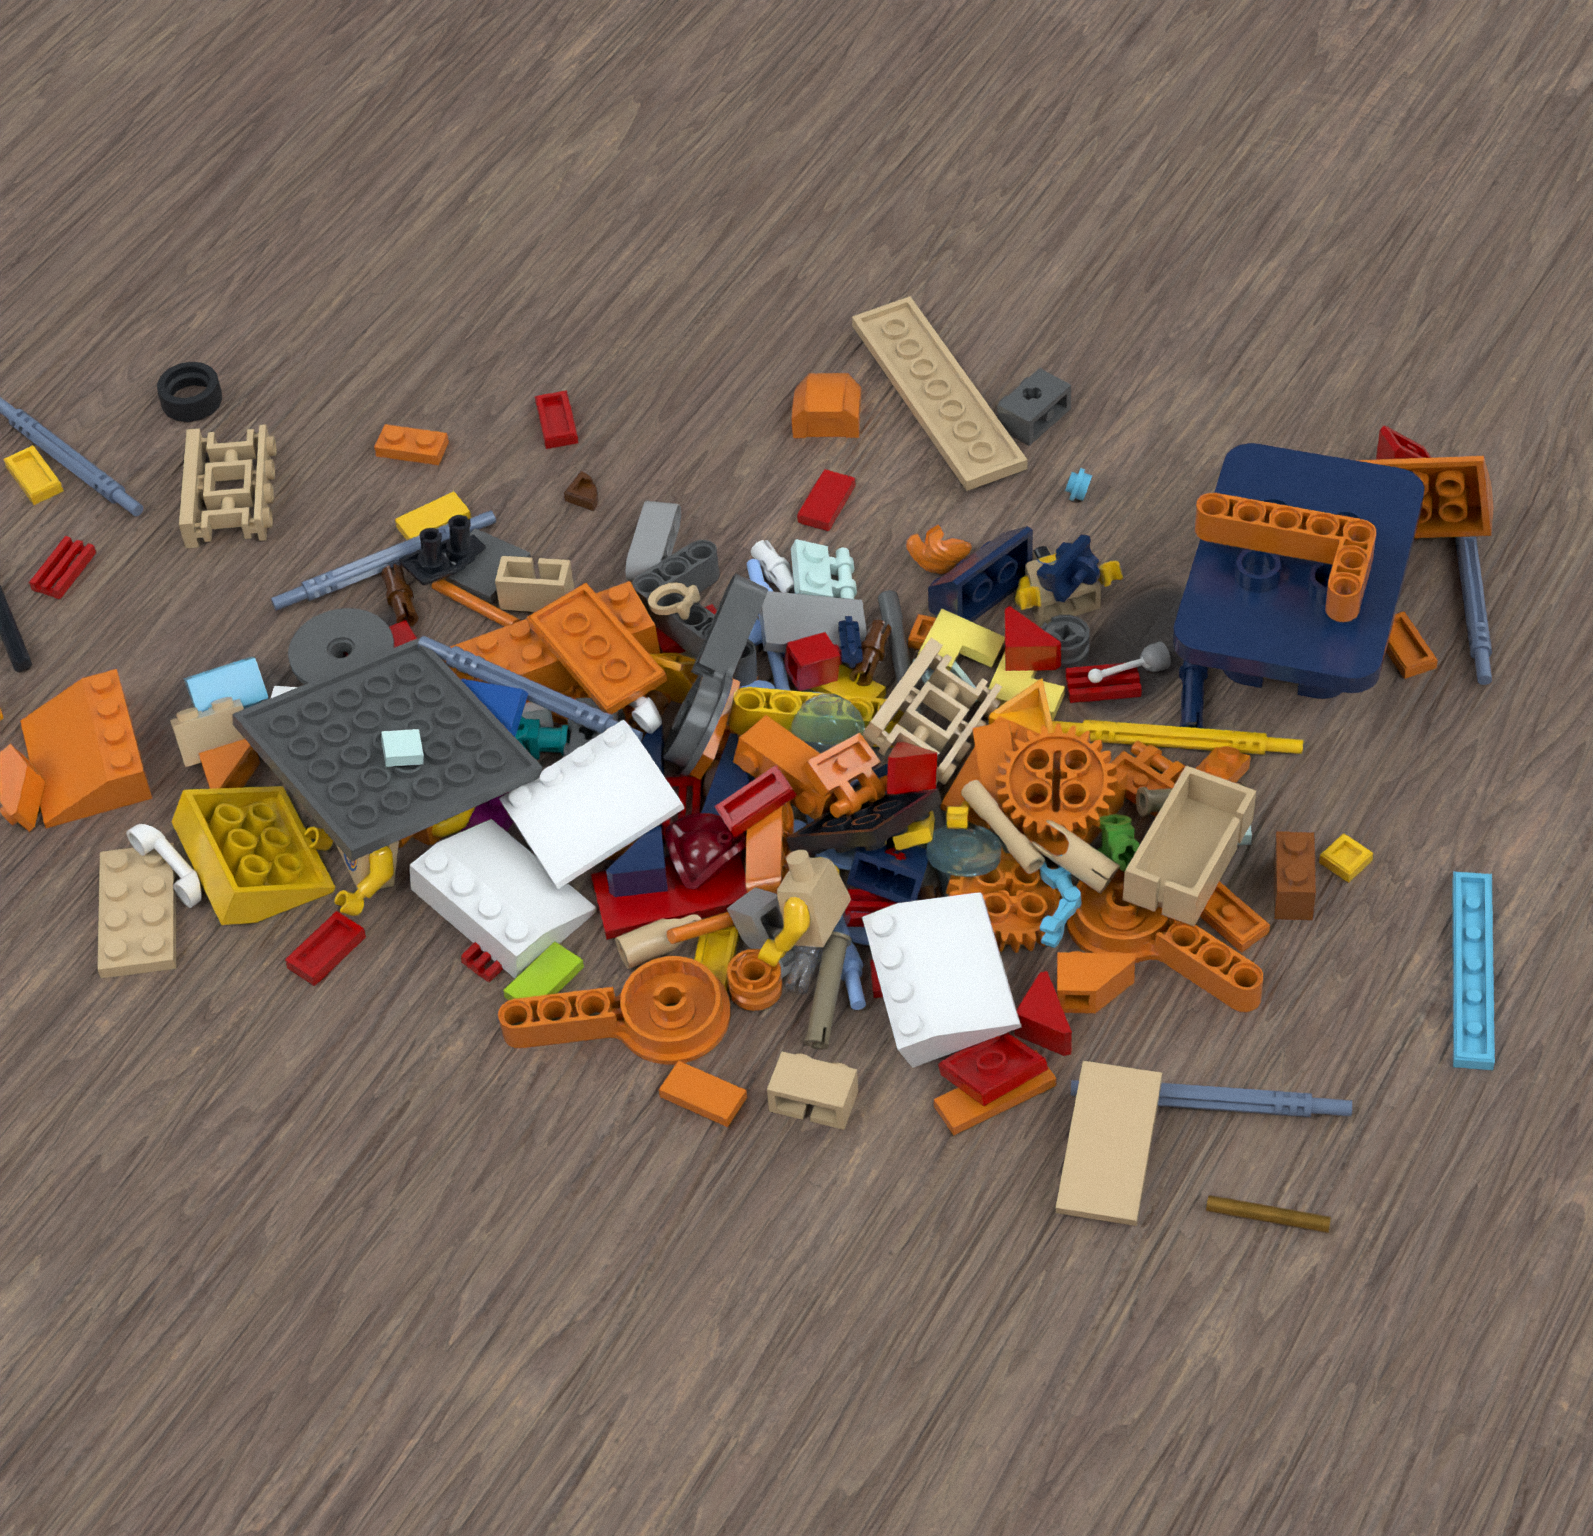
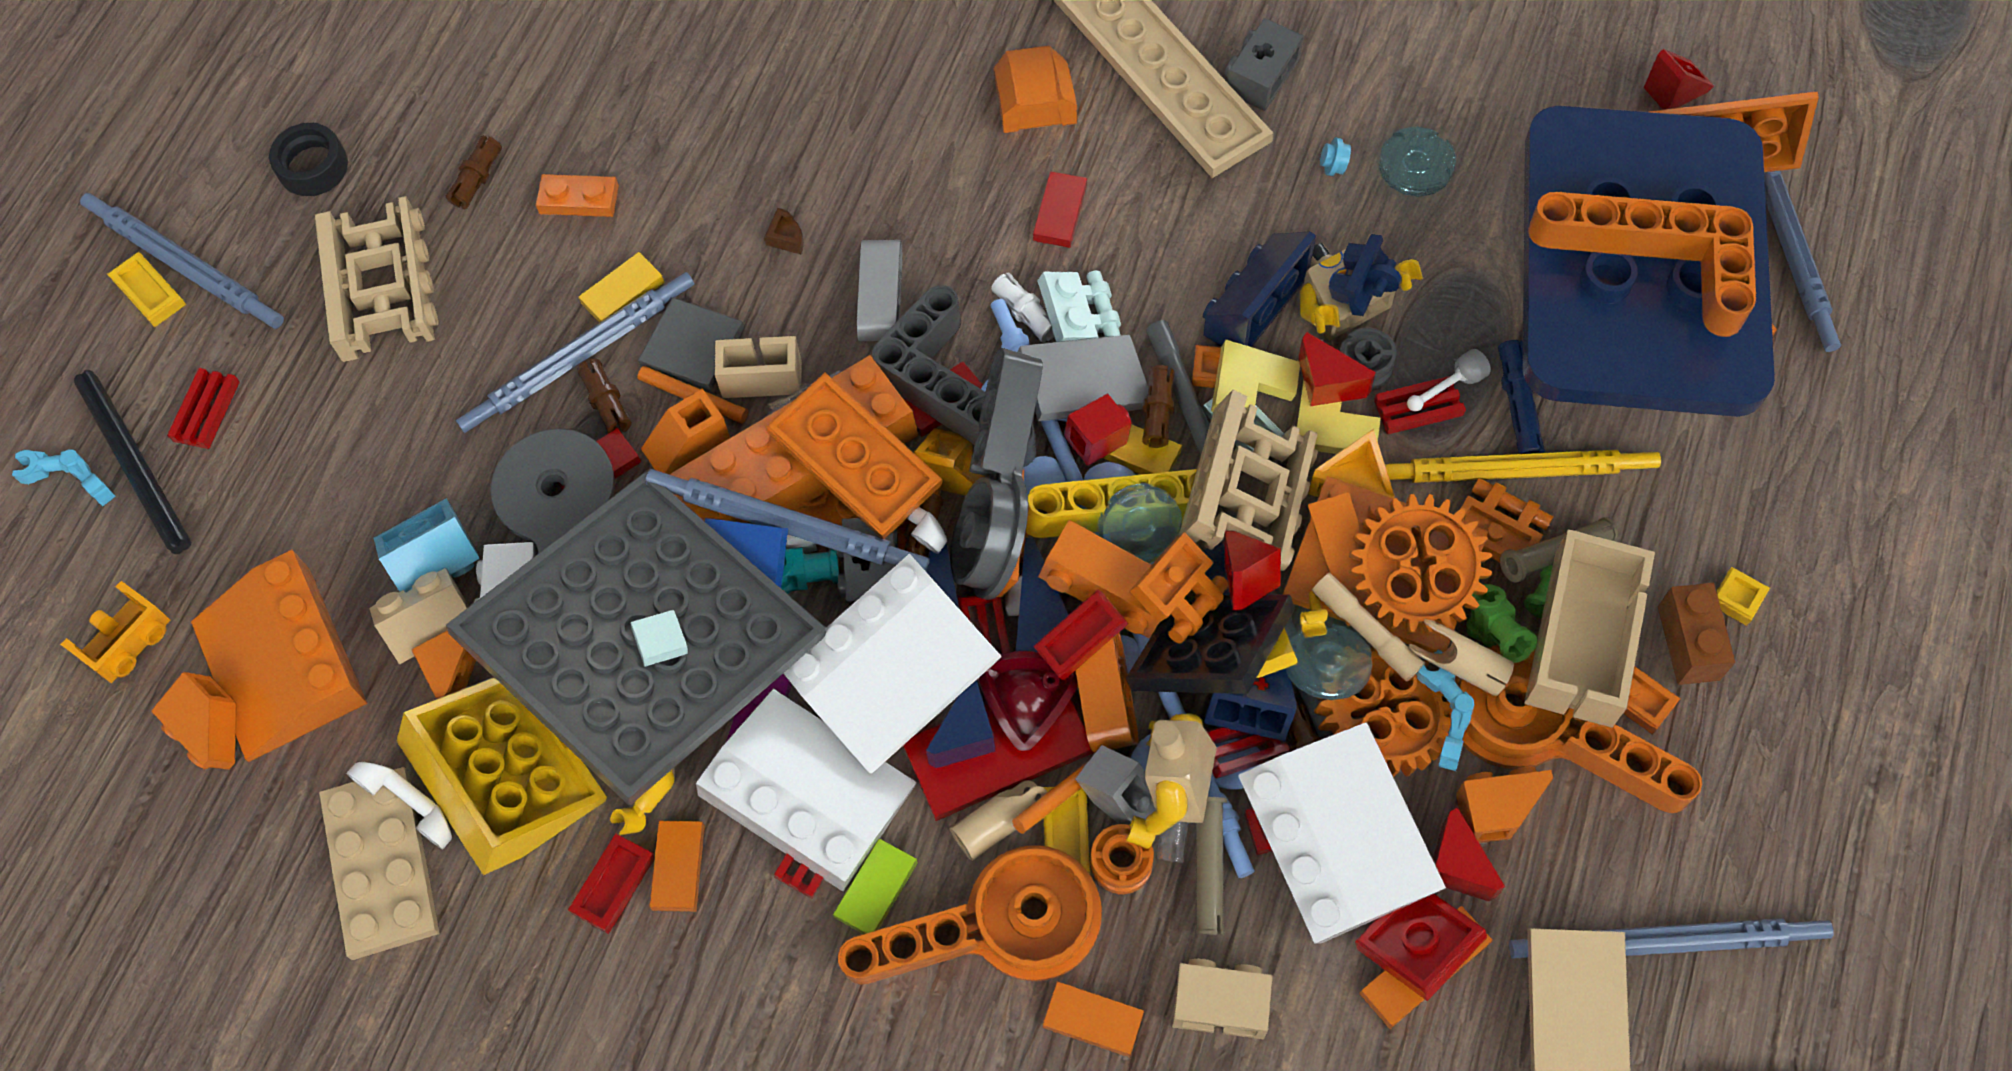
camera: 10 degrees left, 15 degrees up
(327, 417) = (474, 172): none -> reddish brown pin
(382, 942) = (677, 866): none -> orange tile
(443, 558) = (647, 344): black connector -> none
(463, 620) = (685, 433): none -> orange slope
(556, 419) = (735, 143): red tile -> none
(690, 594) = (940, 384): tan piece -> none
(850, 641) = (1135, 398): dark blue axle -> none
(935, 554) = (1202, 264): orange hair -> none
(1152, 498) = (1417, 161): none -> clear light blue tile
(1226, 763) = (1582, 505): orange plate -> none
(1473, 971) = (1914, 726): medium azure tile -> none

